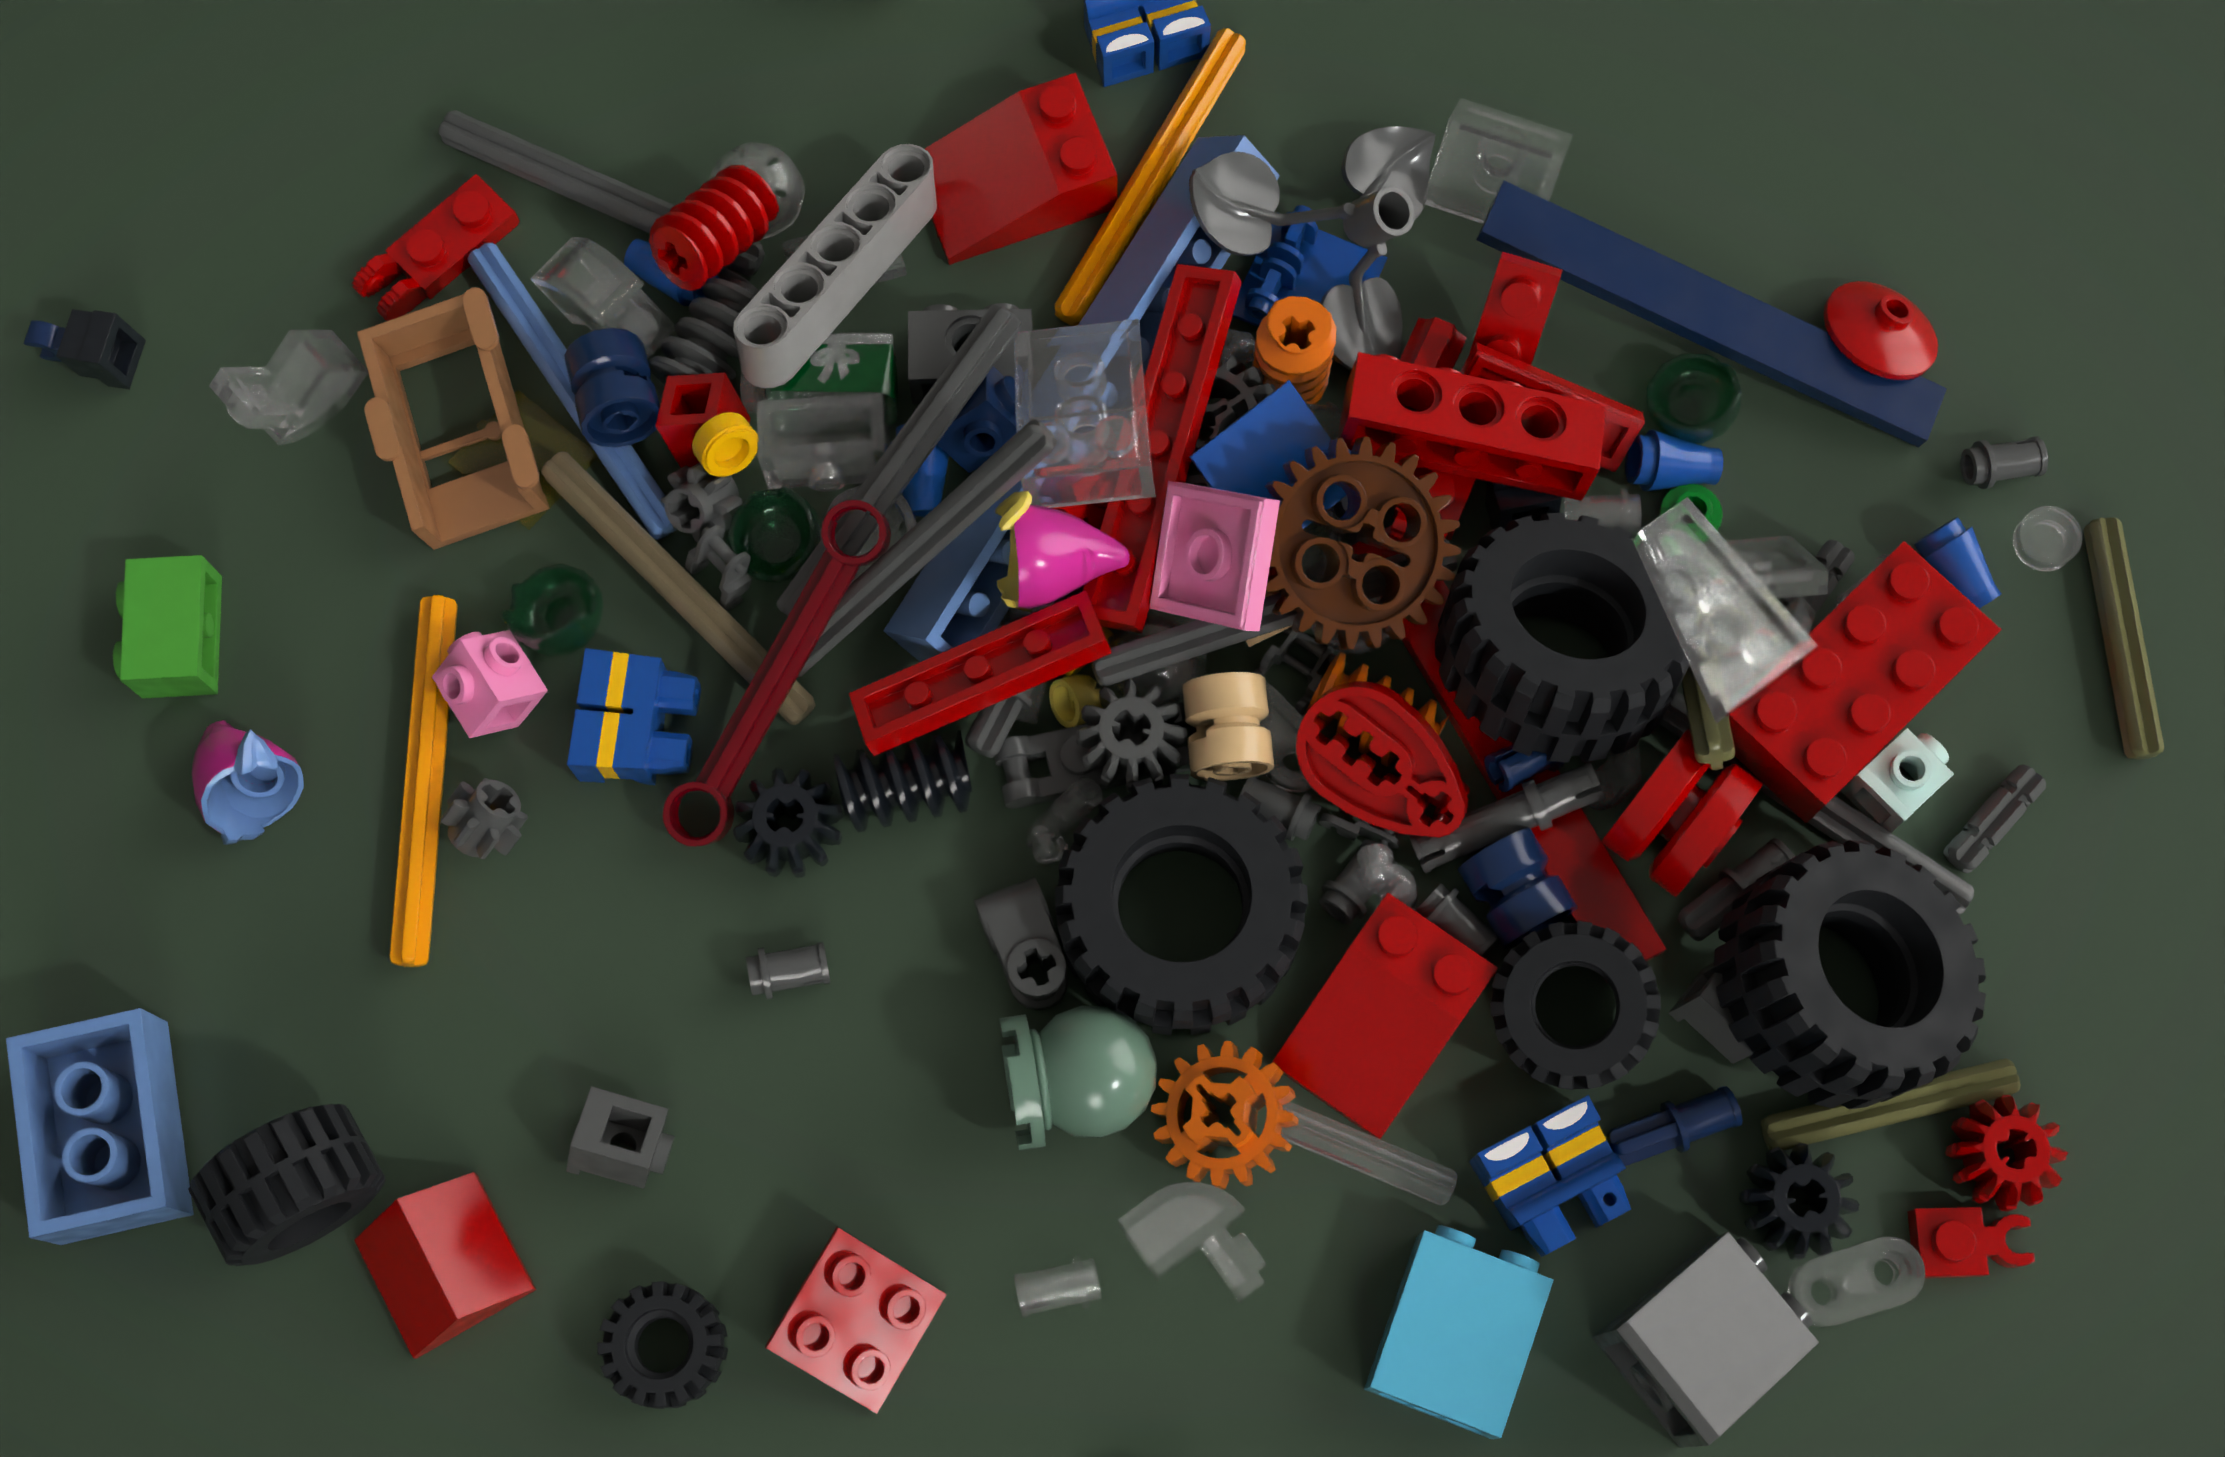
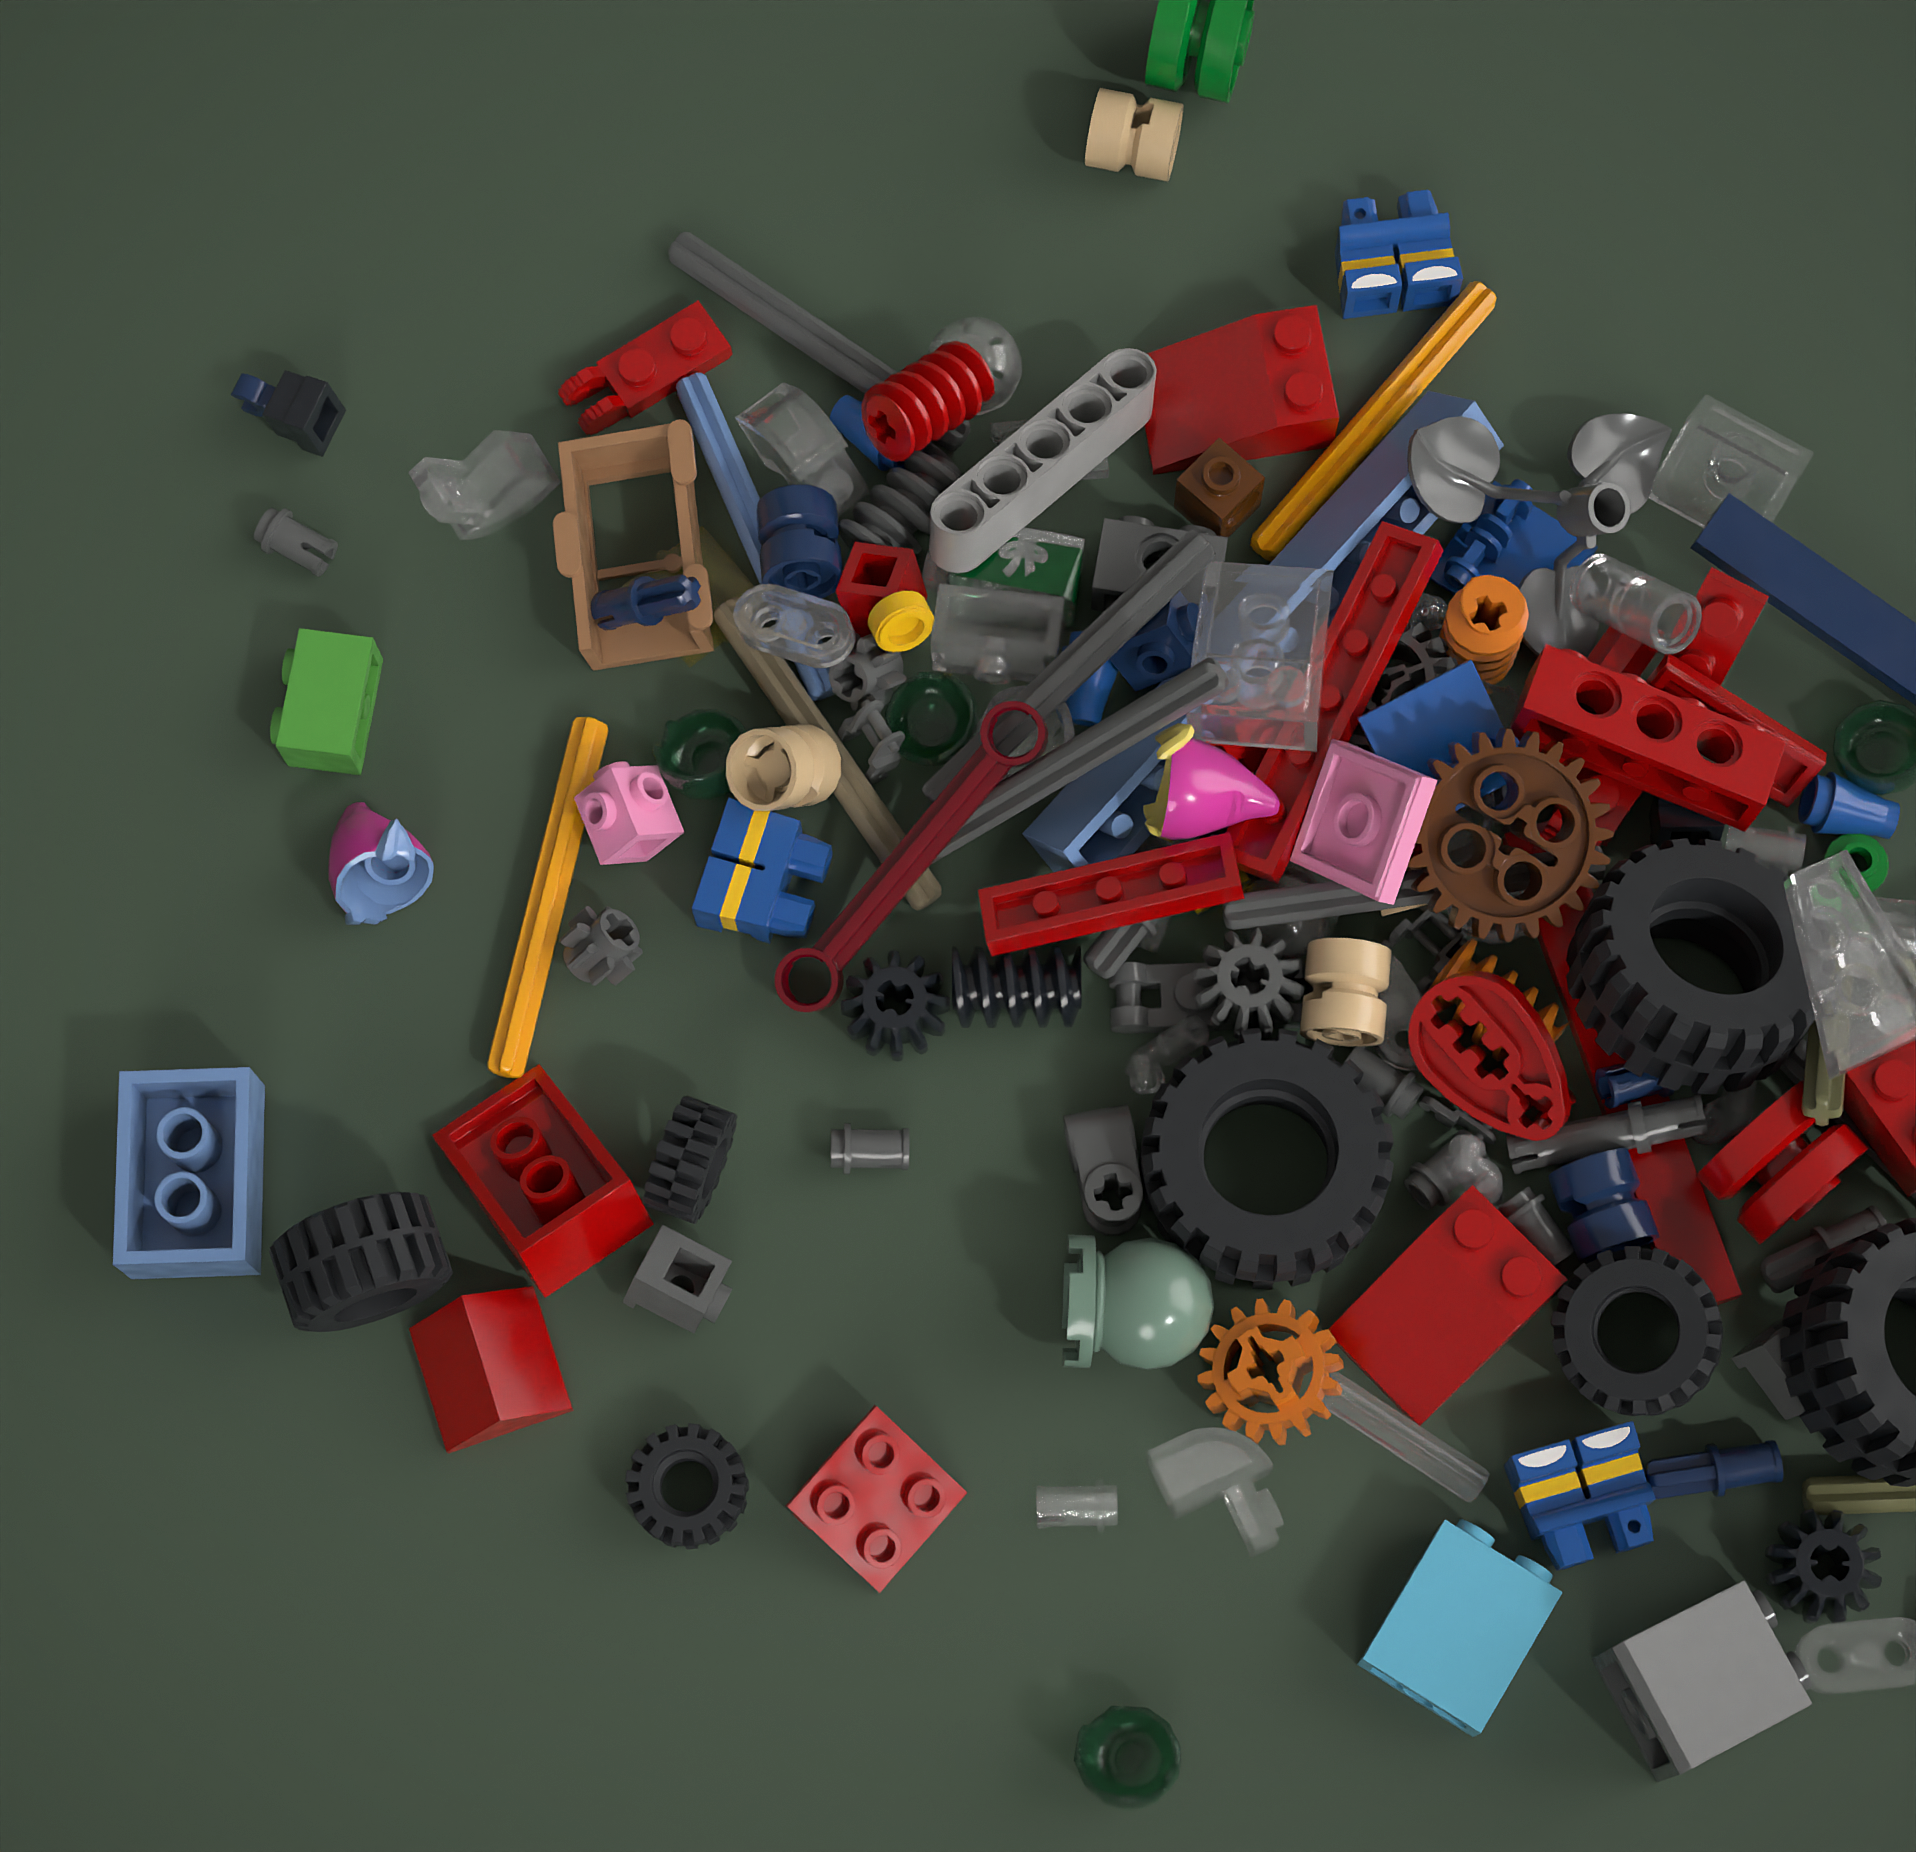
camera: 15 degrees right, 0 degrees up
(98, 471) = (293, 540): none -> dark grey pin
(465, 1064) = (543, 1180): none -> red slope
(469, 470) = (645, 601): none -> dark blue axle
(607, 1015) = (690, 1159): none -> black tyre
(627, 467) = (799, 626): none -> clear plate
(634, 608) = (783, 767): none -> tan wheel
(1015, 265) = (1219, 490): none -> reddish brown brick
(1069, 697) = (1195, 932): light yellow hinge -> none
(1436, 300) = (1635, 603): none -> clear pin

